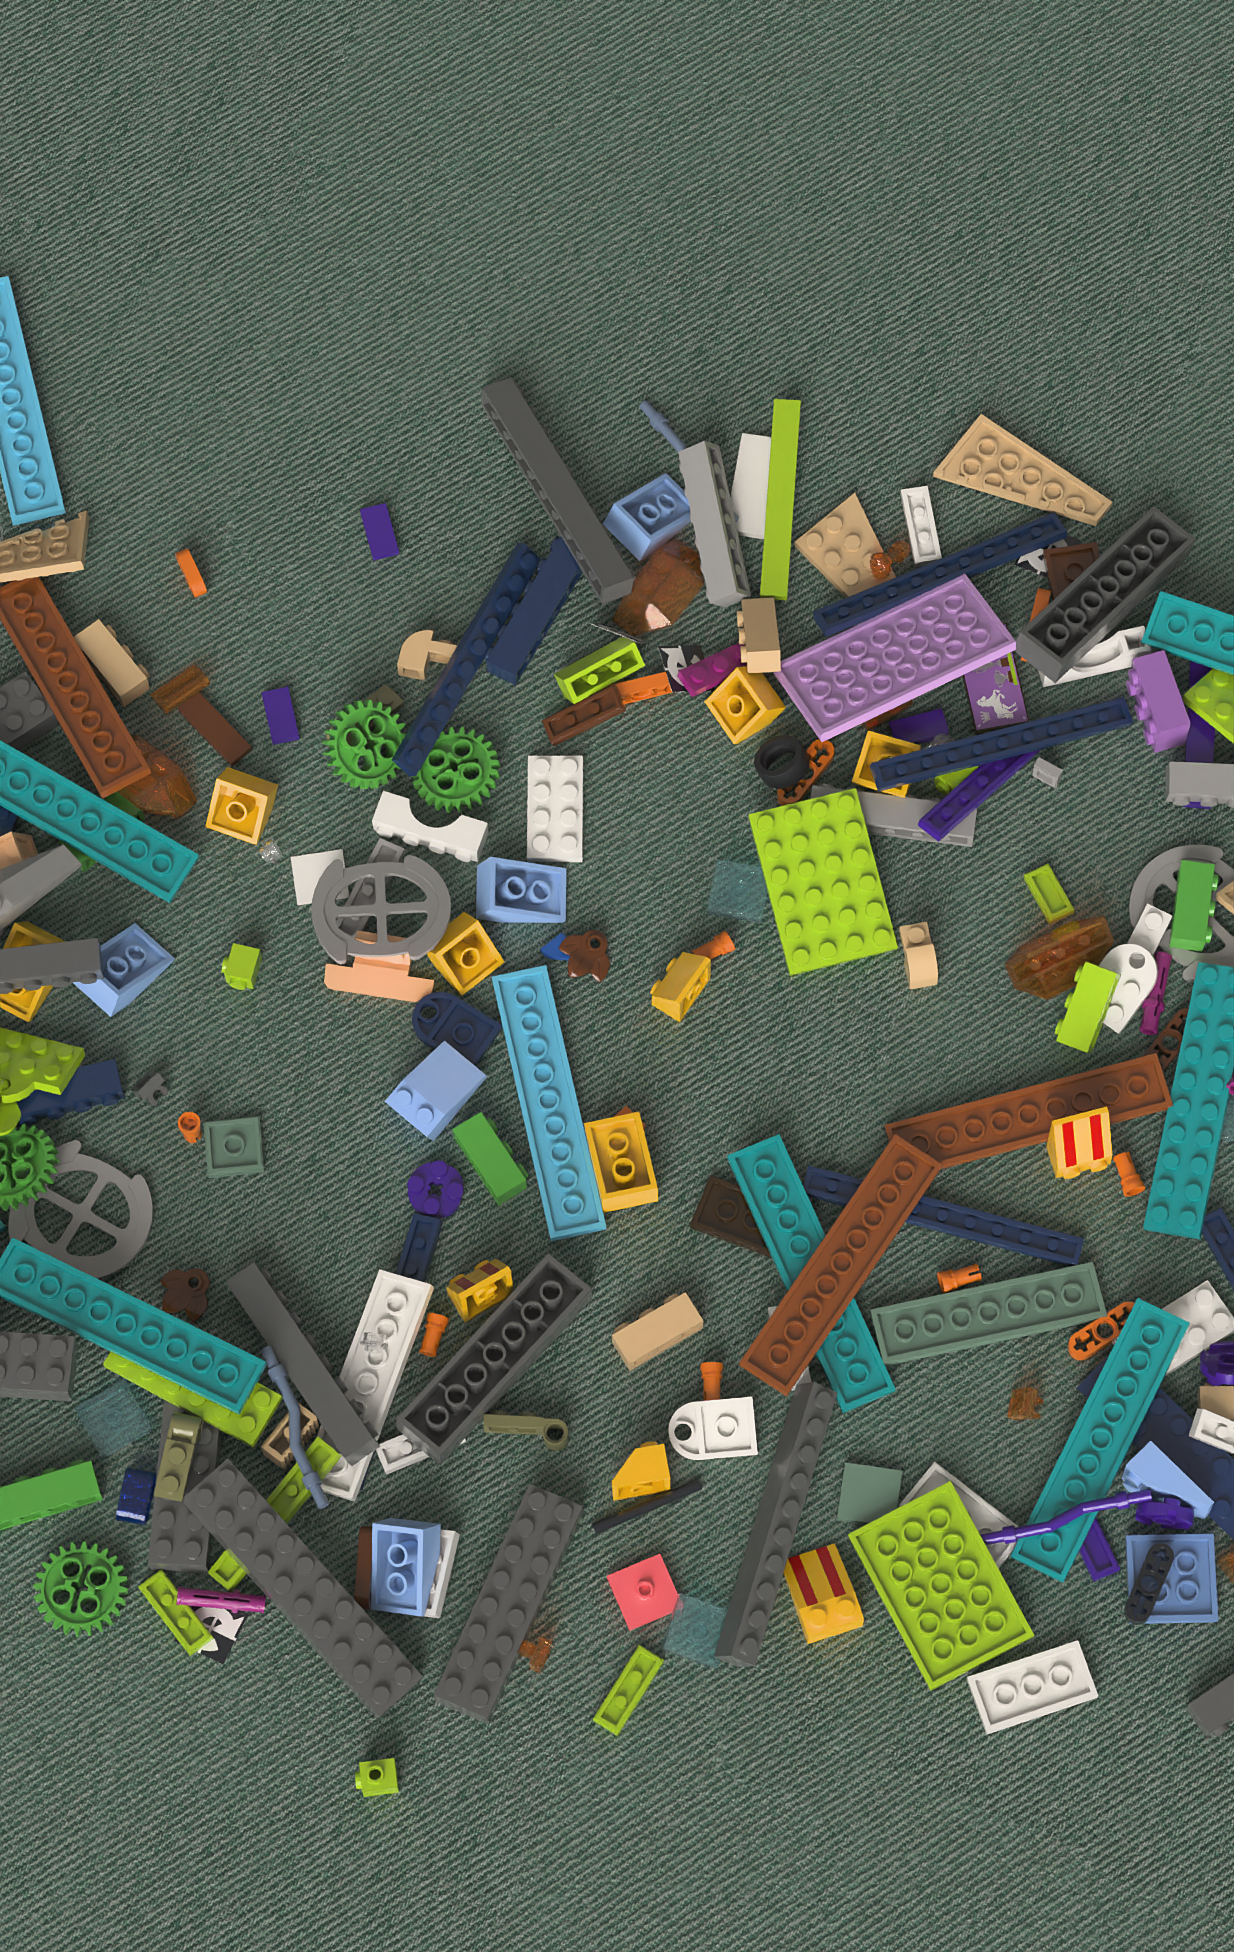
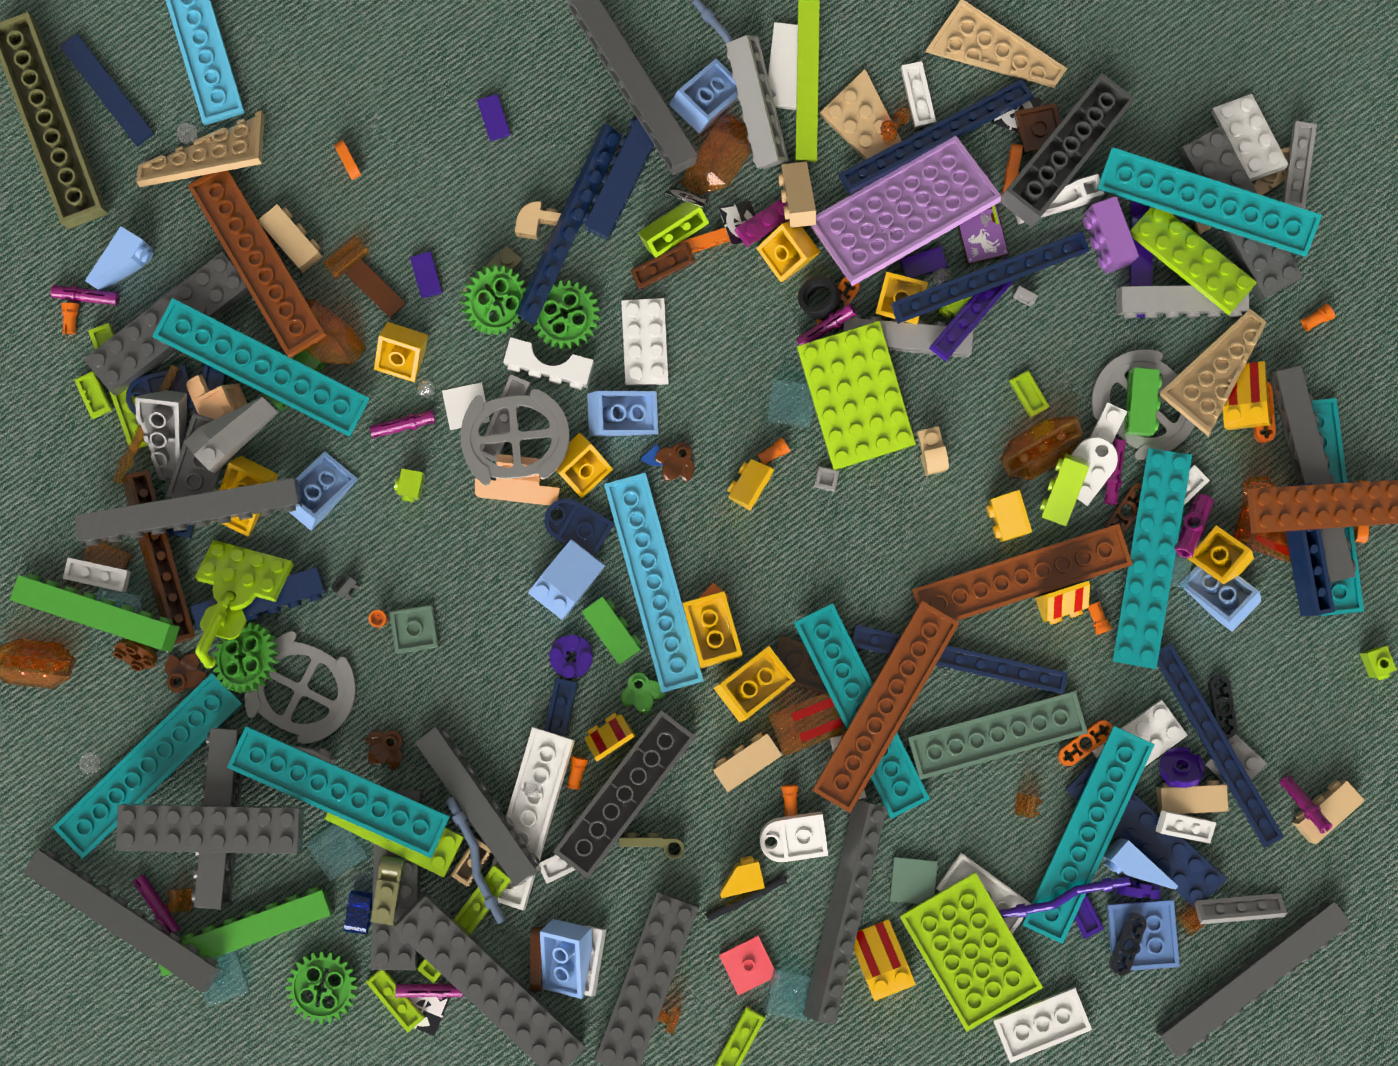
camera: 10 degrees left, 15 degrees up
(236, 893) = (412, 421): none -> magenta pin
(524, 1243) = (641, 696): none -> bright green plate
(671, 1232) = (754, 684): none -> yellow slope
(737, 1285) = (806, 723): none -> clear orange slope
(780, 986) = (826, 478): none -> light grey tile
(798, 789) = (833, 321): none -> magenta pin
(951, 1280) = (968, 709): orange pin -> none
(1014, 1039) = (1009, 516): none -> yellow slope

